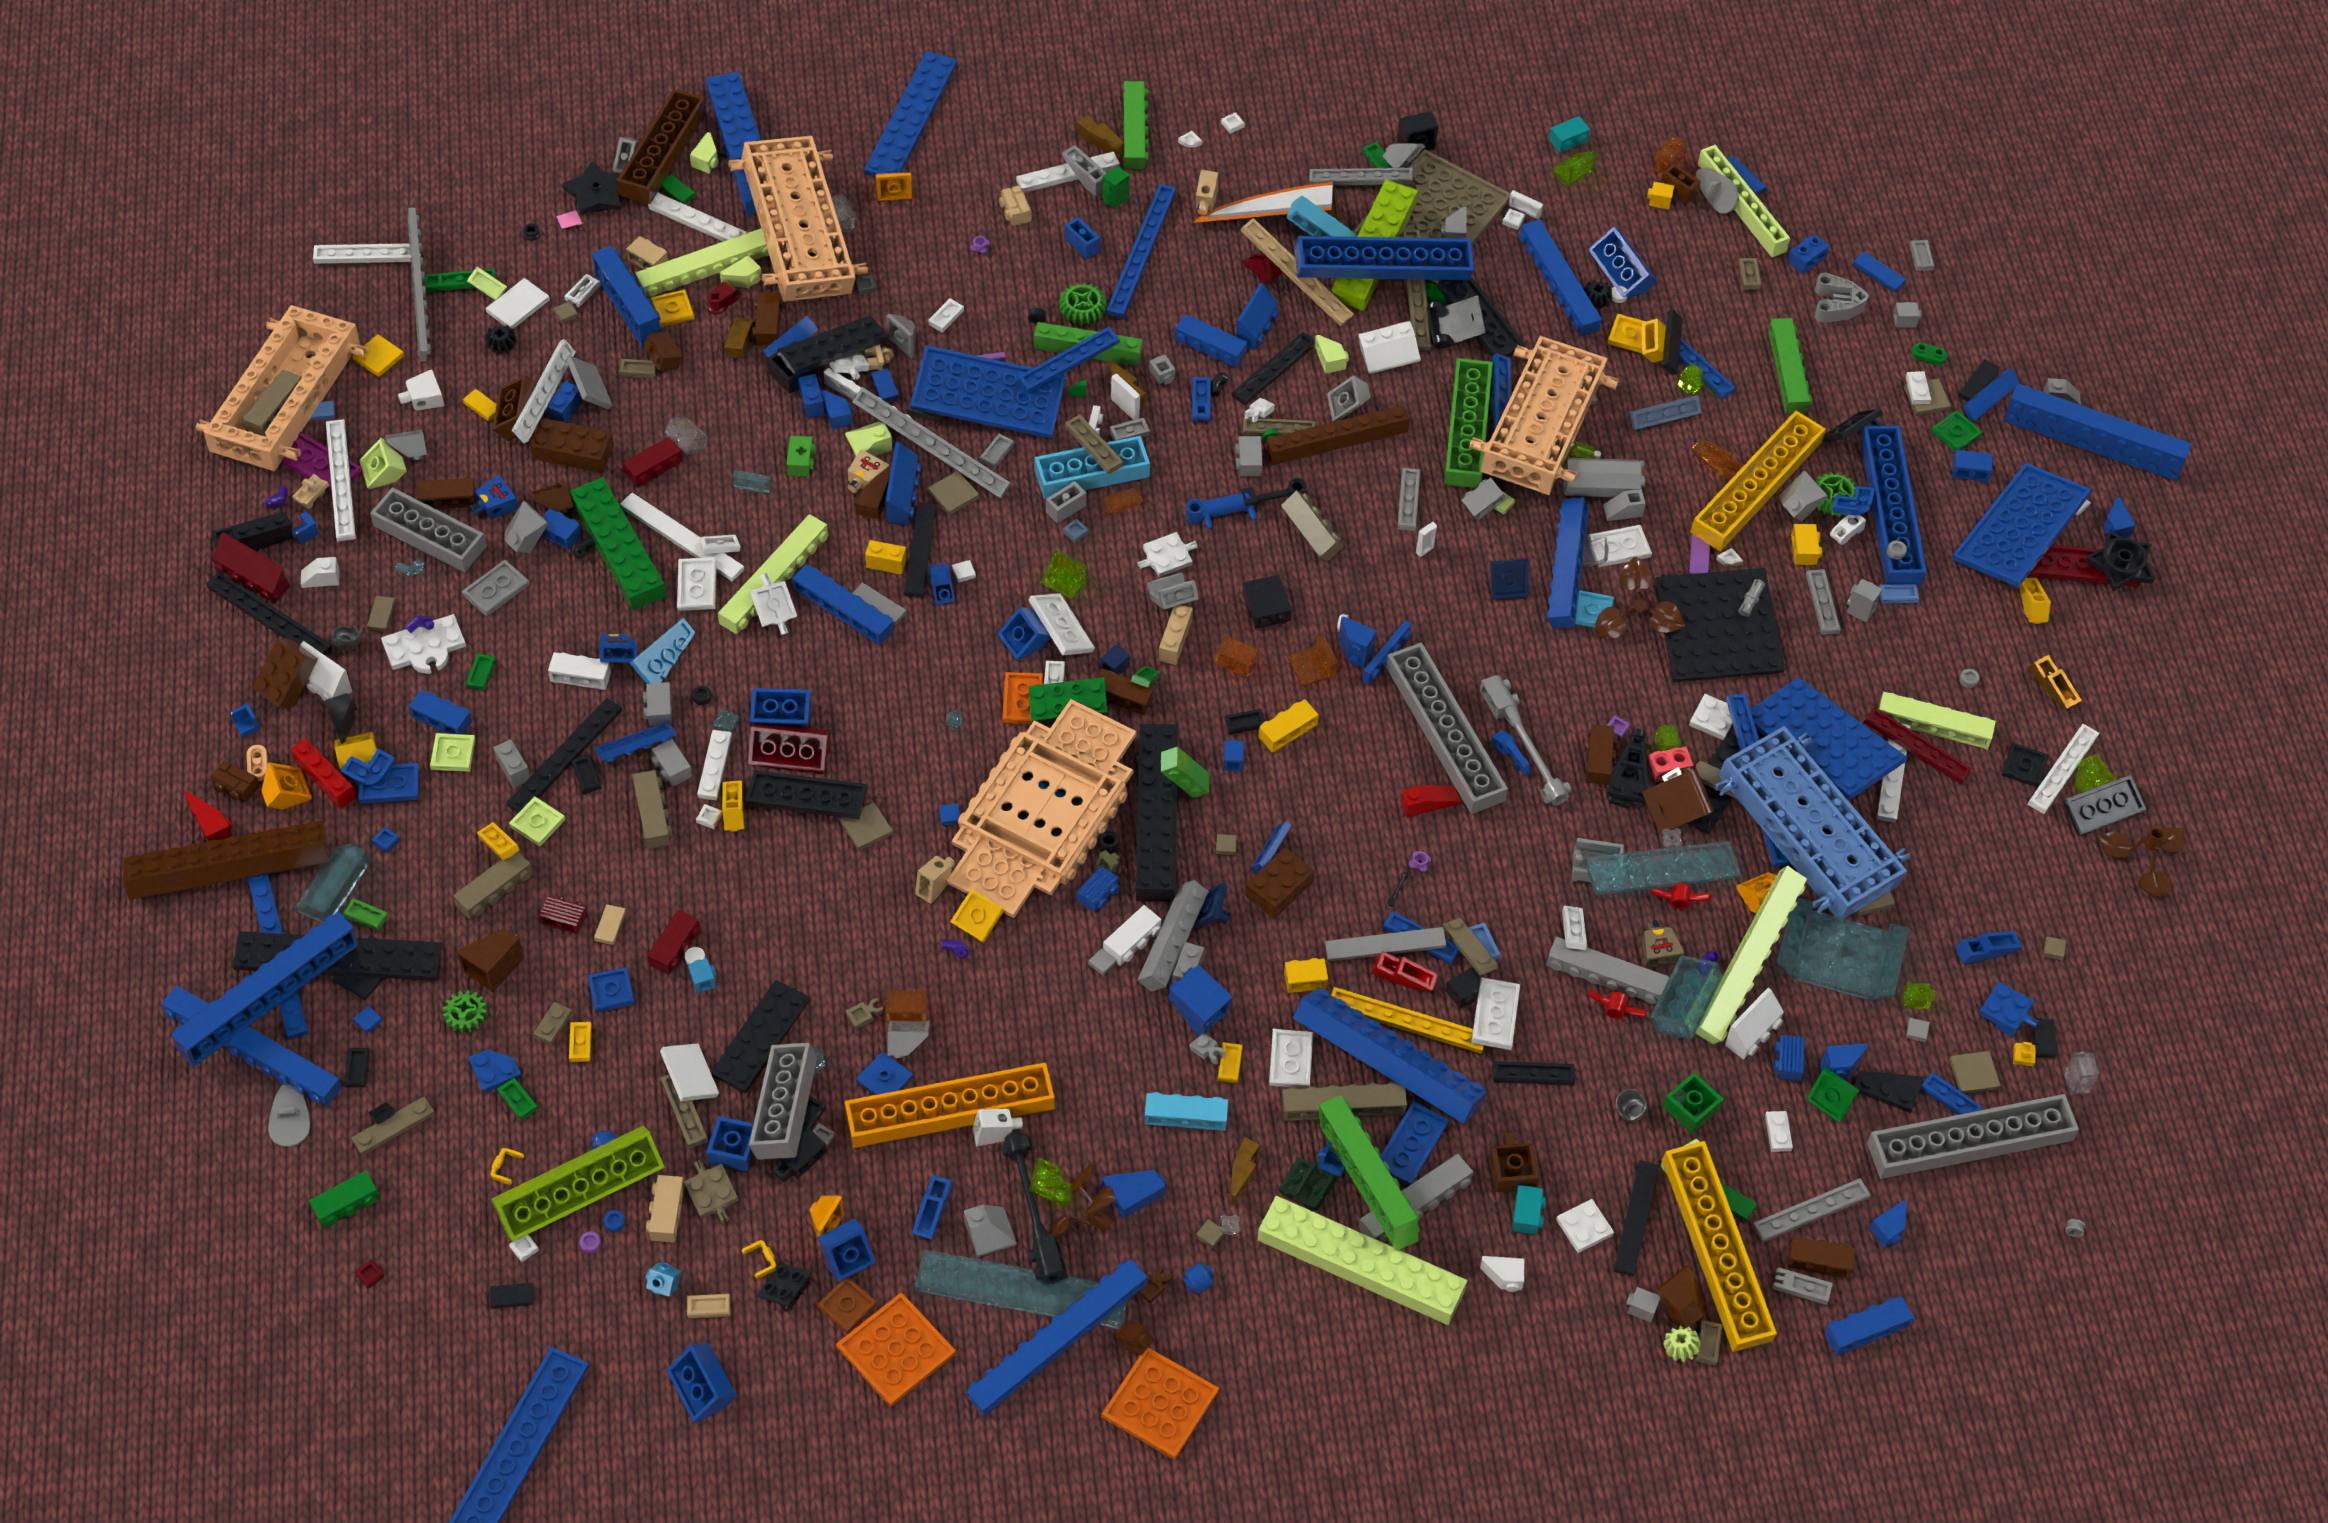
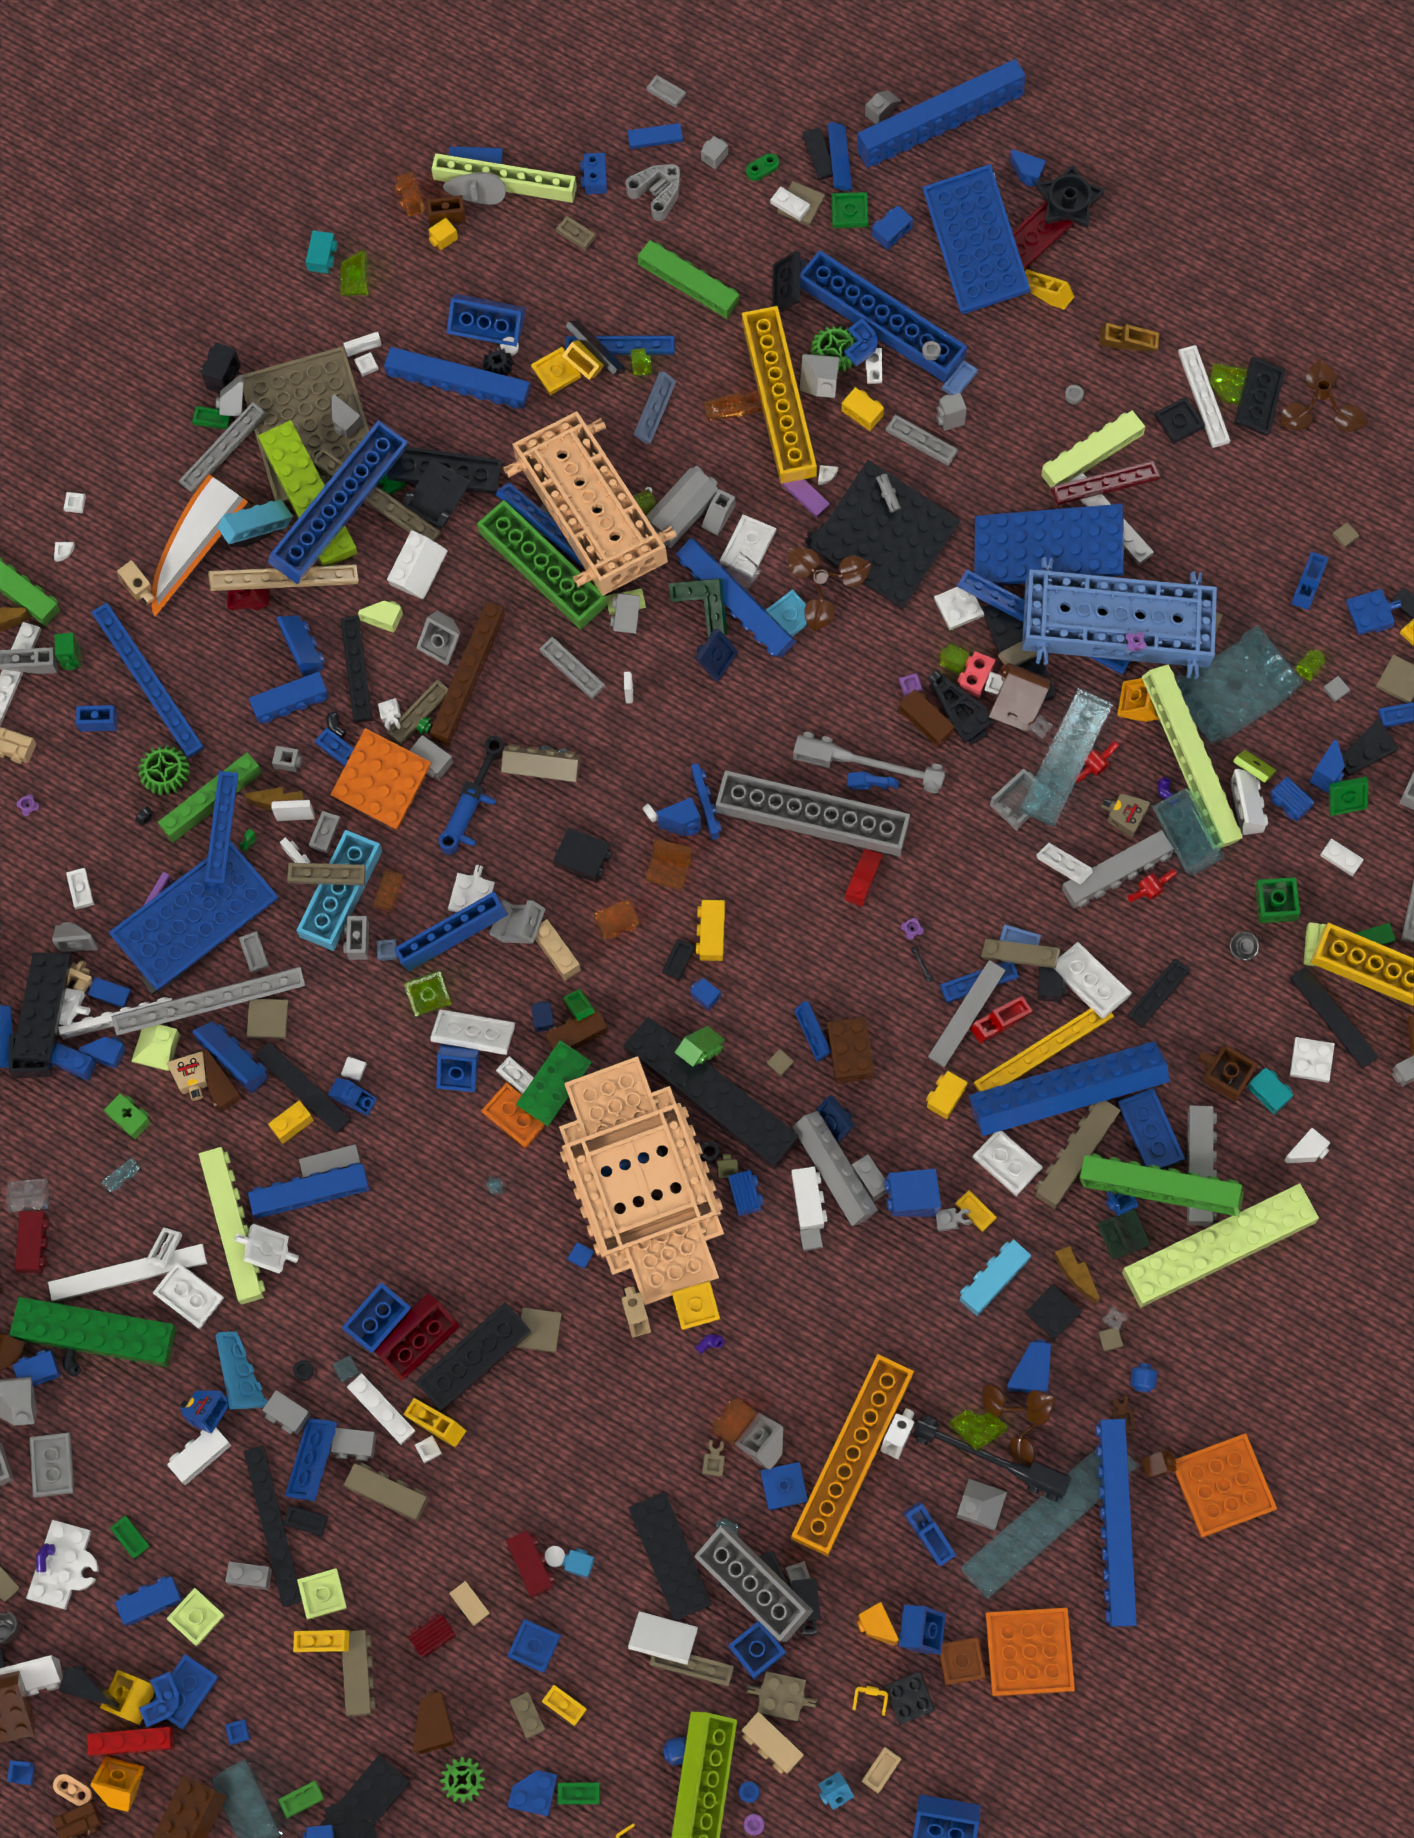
camera: 45 degrees left, 15 degrees up
(1125, 554) = (451, 931): none -> blue brick
(1196, 1176) = (1053, 1312): none -> black plate
(1202, 435) = (381, 778): none -> orange plate
(1553, 538) = (713, 597): none -> dark green plate
(1789, 1008) = (1254, 766): none -> lime tile
(1796, 841) = (1132, 646): none -> medium lavender plate

